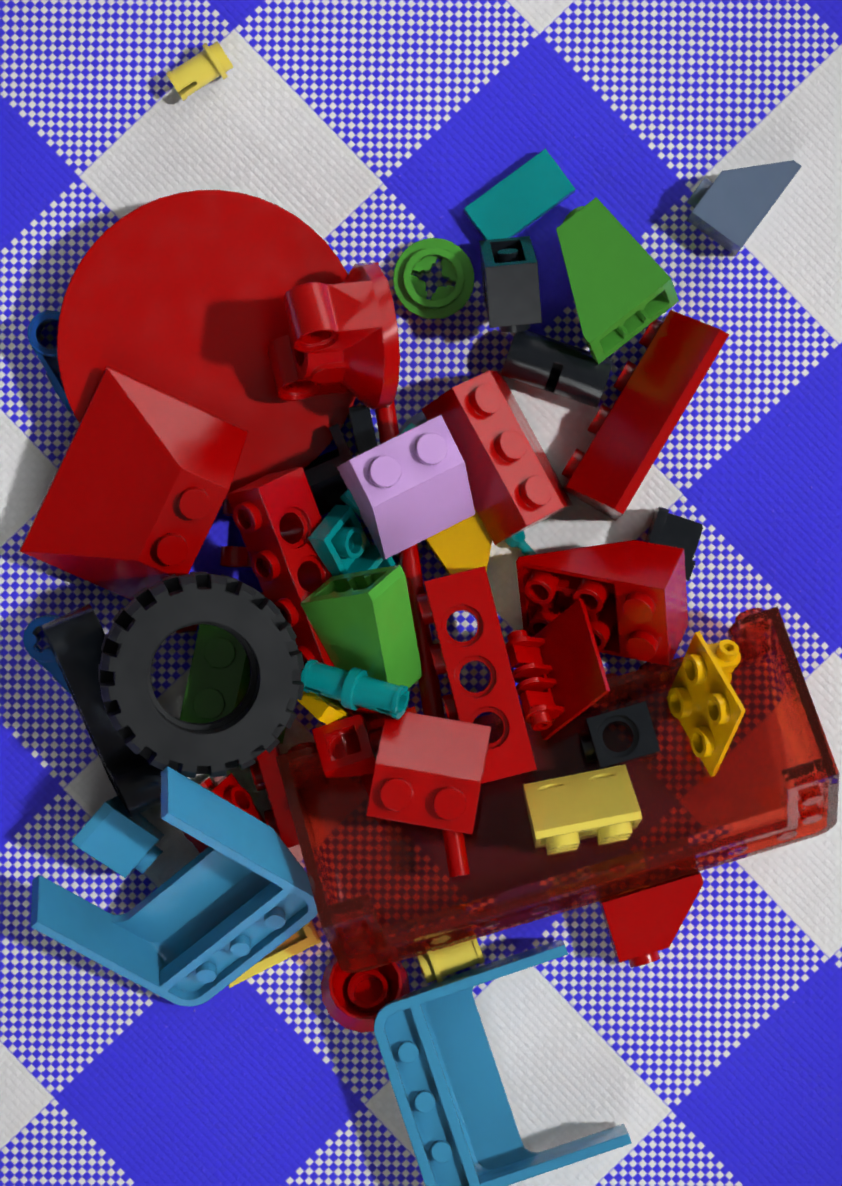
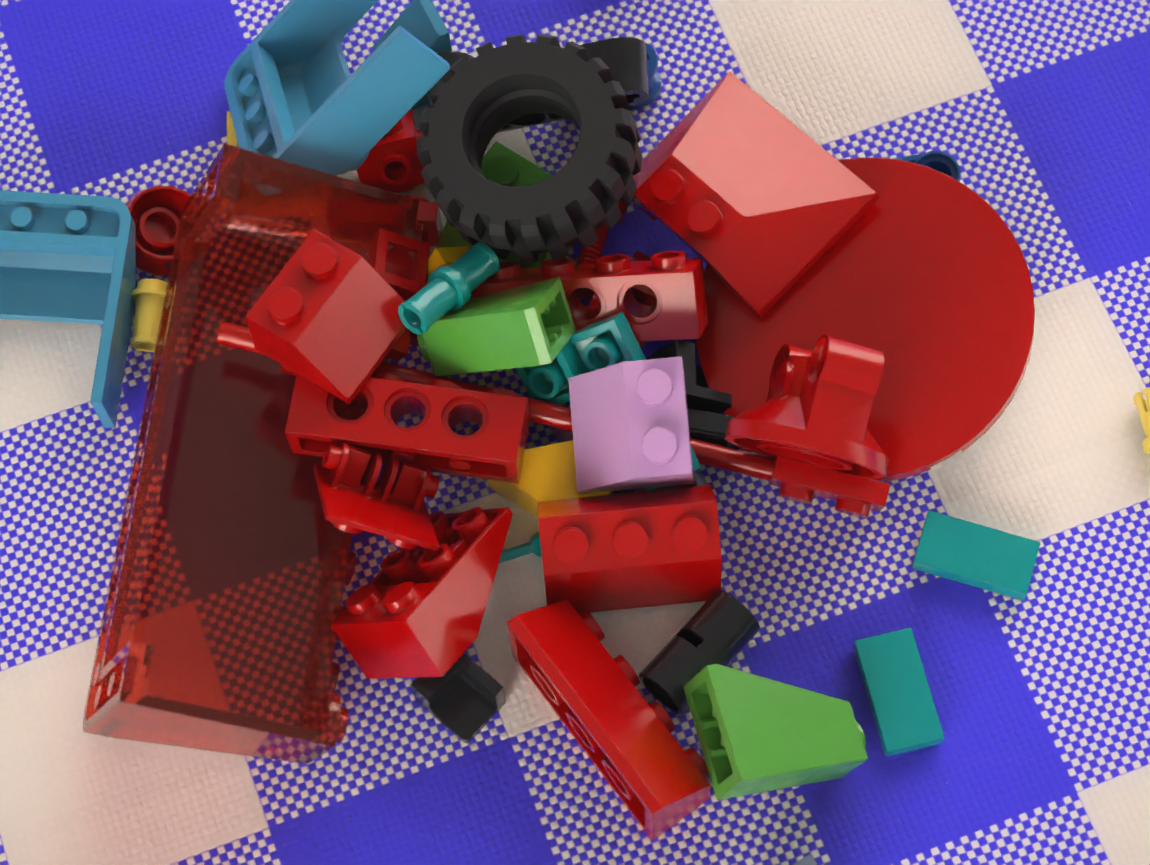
camera: 120 degrees right, 20 degrees down
(377, 180) = (976, 555): none -> teal tile
(421, 258) = (841, 544): bright green gear -> none
(510, 283) = (808, 624): black brick -> none
(582, 807) = (223, 464): light yellow slope -> none
(639, 724) = (285, 576): black brick -> none
(649, 918) = (88, 508): red slope -> none
(706, 700) = (286, 644): yellow hinge -> none

